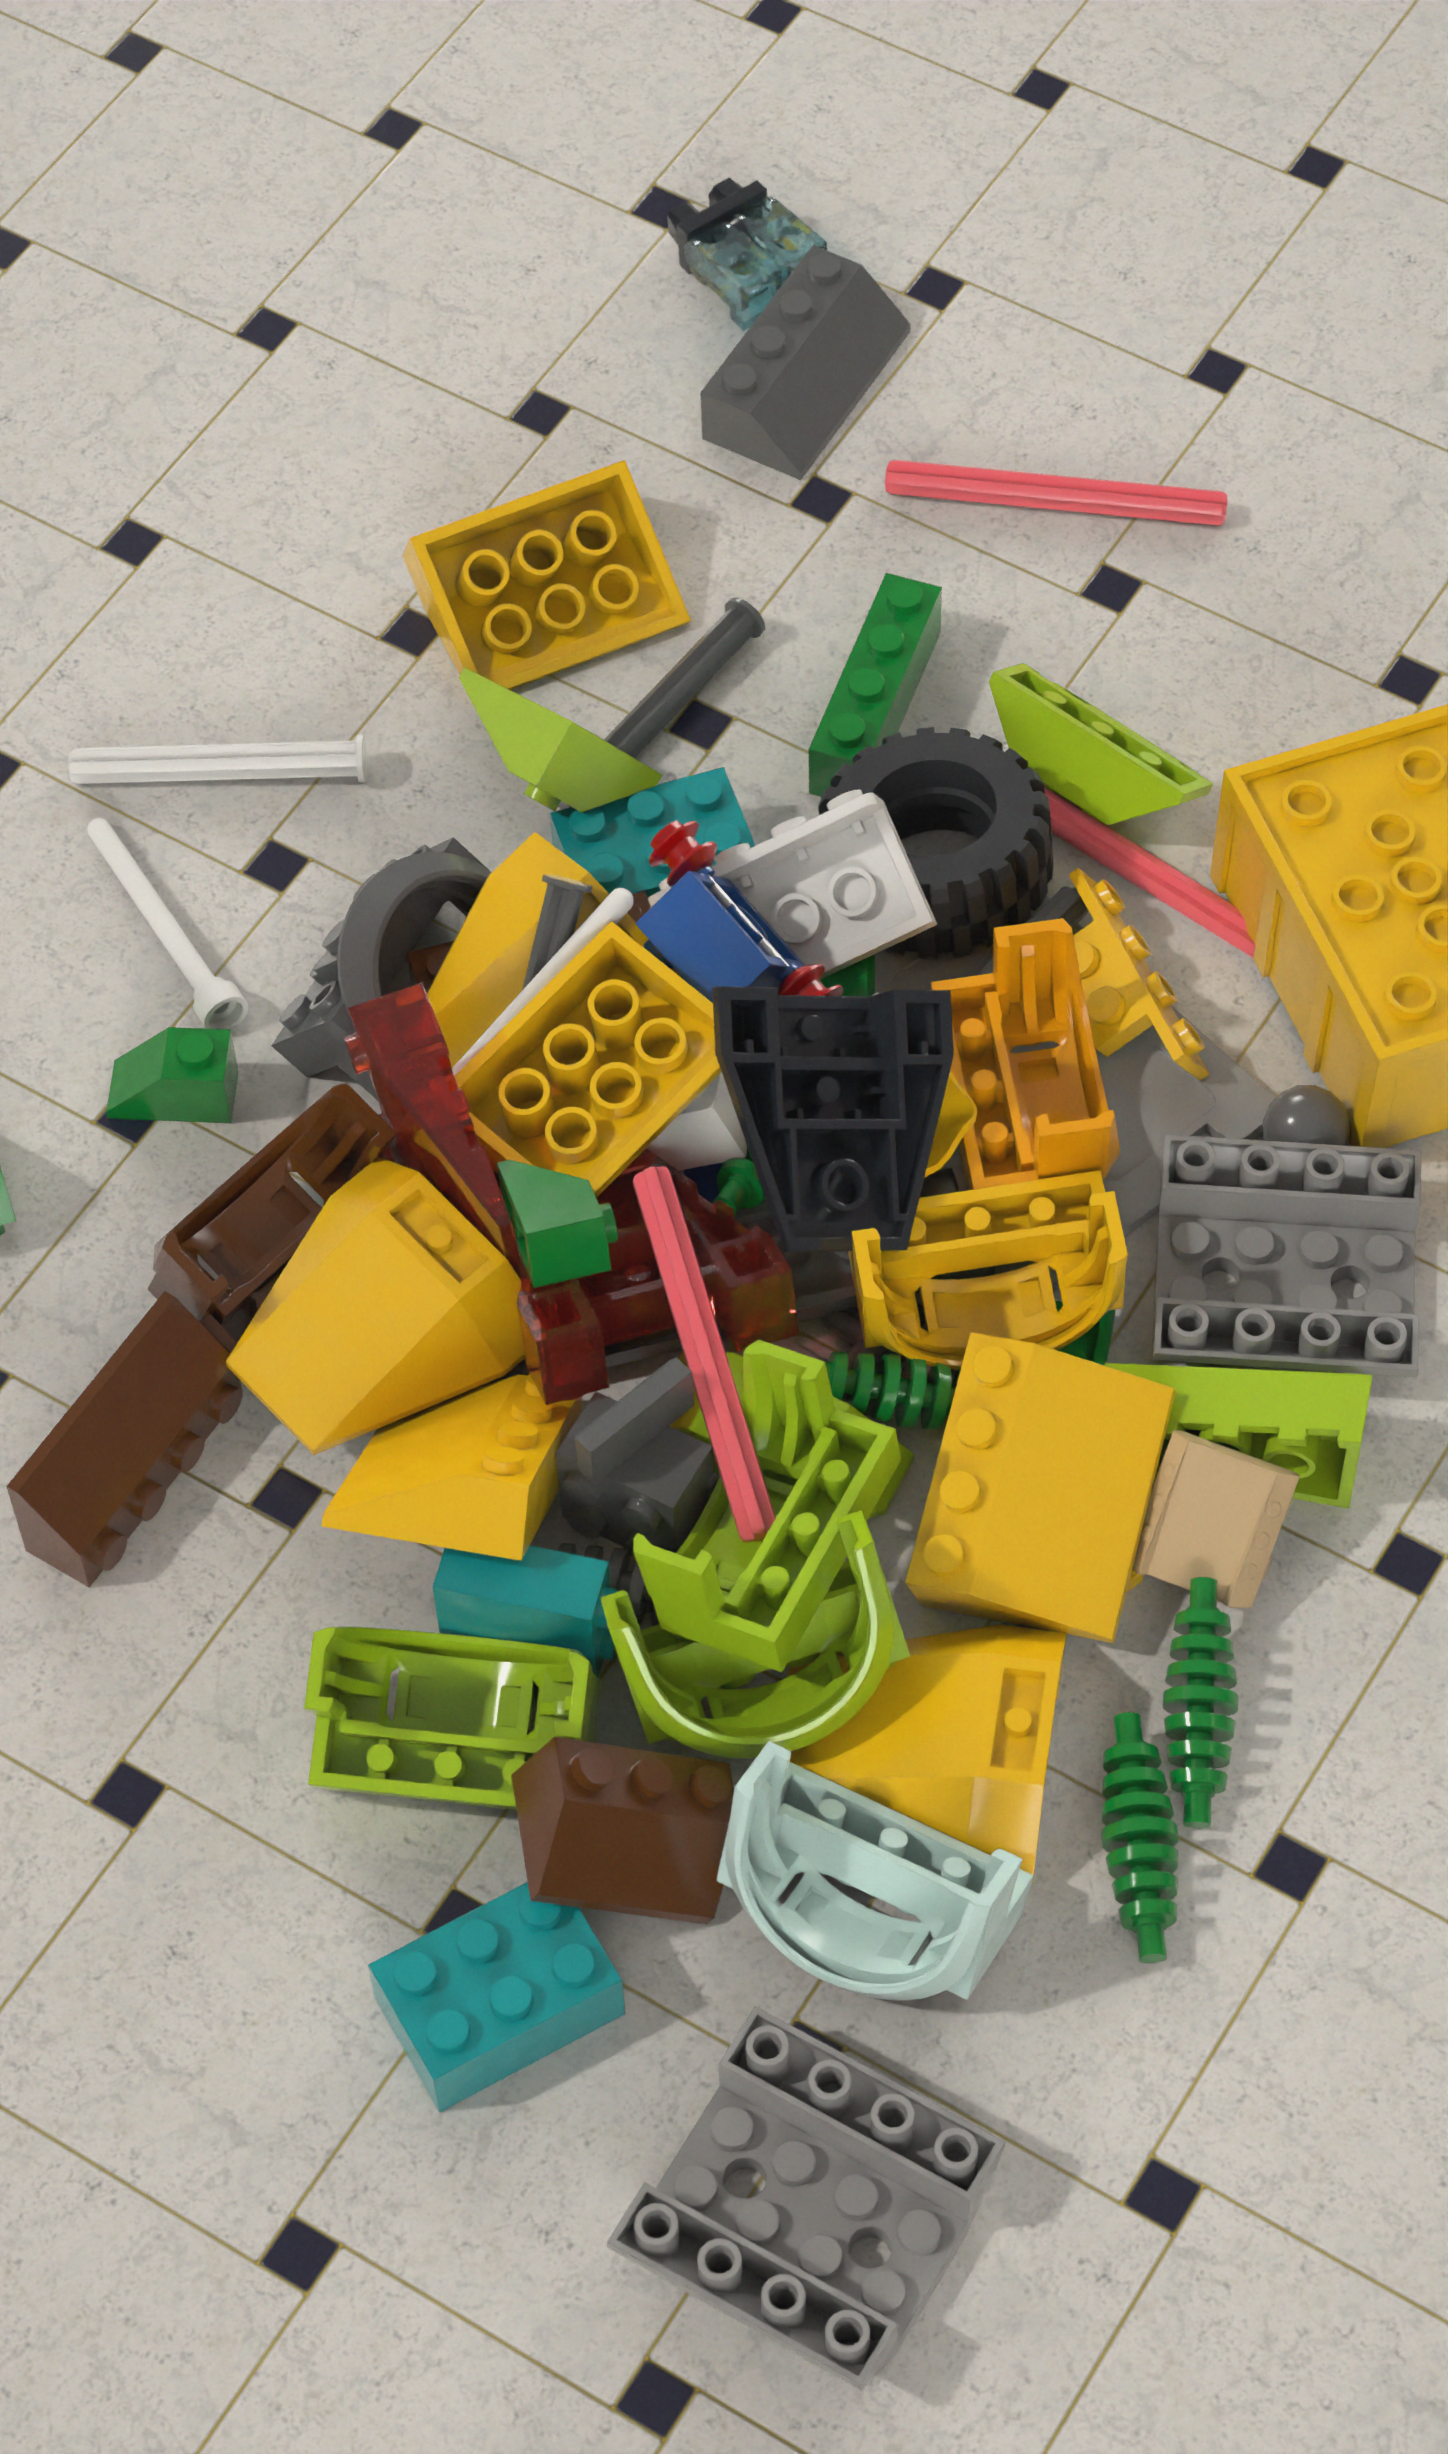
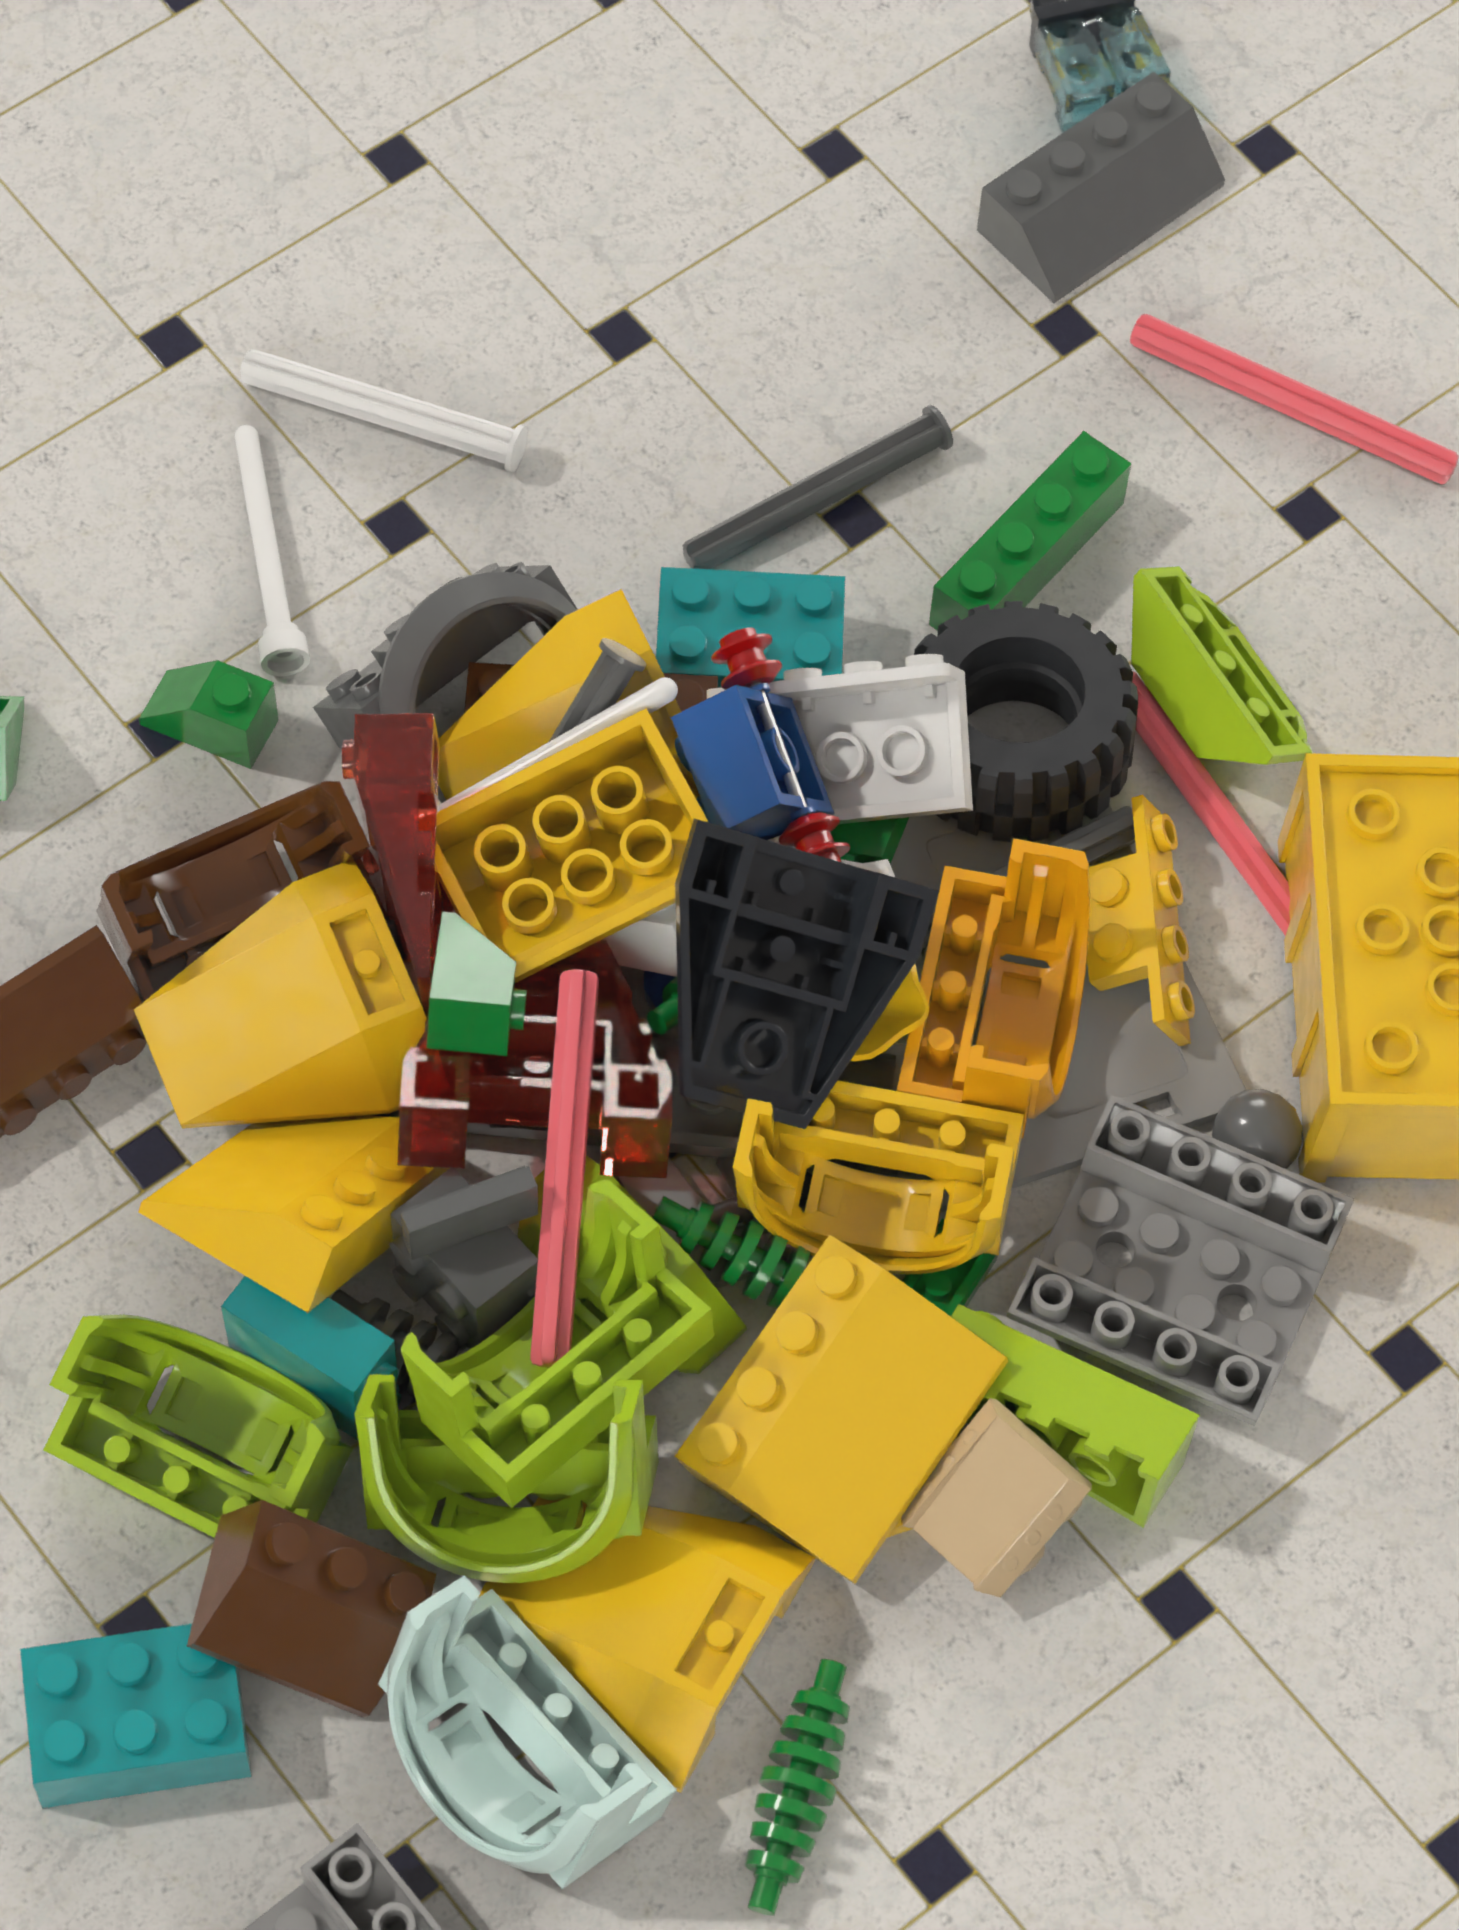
camera: 15 degrees right, 5 degrees up
(547, 579) = (762, 330): yellow slope -> none
(553, 752) = (685, 507): lime wedge -> none
(1200, 1702) = (910, 1674): green piece -> none

